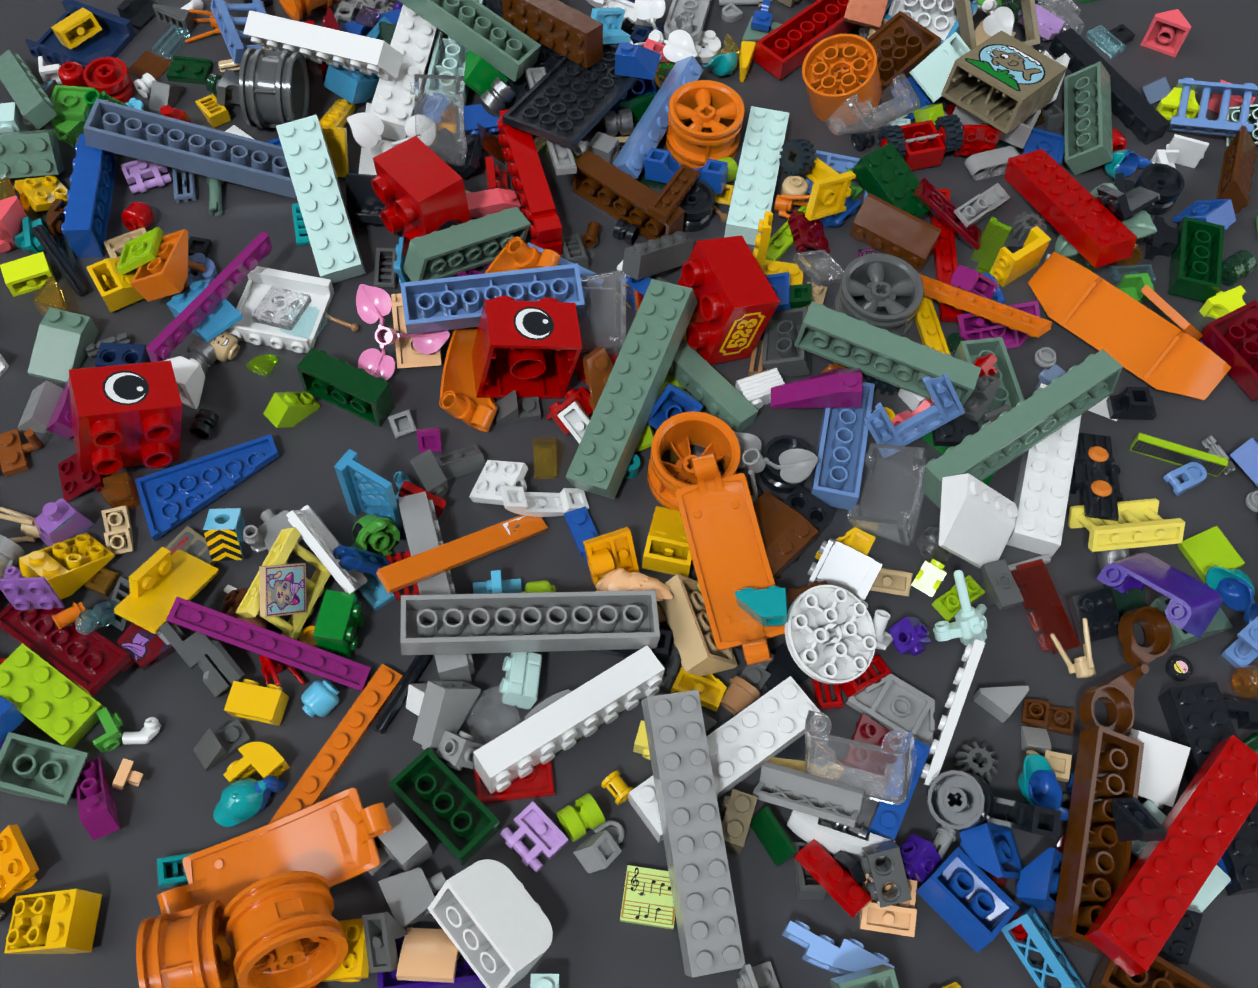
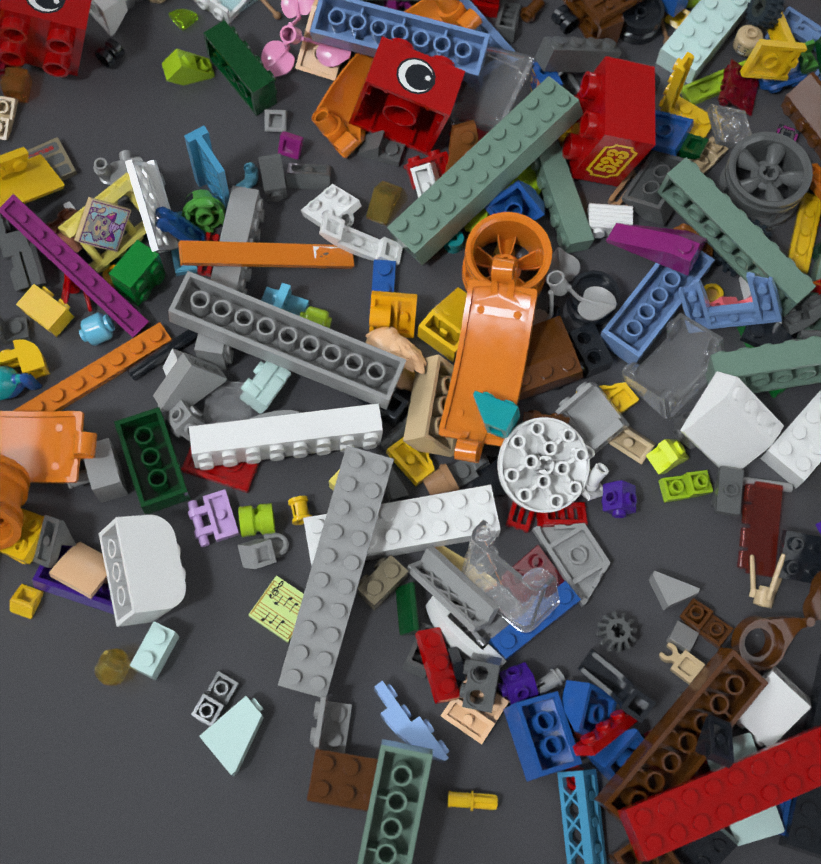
camera: 25 degrees right, 10 degrees up
(187, 488) = (73, 103): blue wing -> none
(224, 533) = (79, 155): piece -> none
(408, 489) = (268, 204): red tile -> none
(411, 895) = (90, 517): light grey torso -> none
(785, 203) = (731, 50): orange plant -> none
(945, 804) = (580, 654): wheel -> none
(955, 704) = (623, 575): white wing -> none
(969, 622) = (679, 511): light aqua piece -> none
(1025, 866) = (604, 734): none -> red plate
(1040, 785) = (660, 676): blue hair -> none

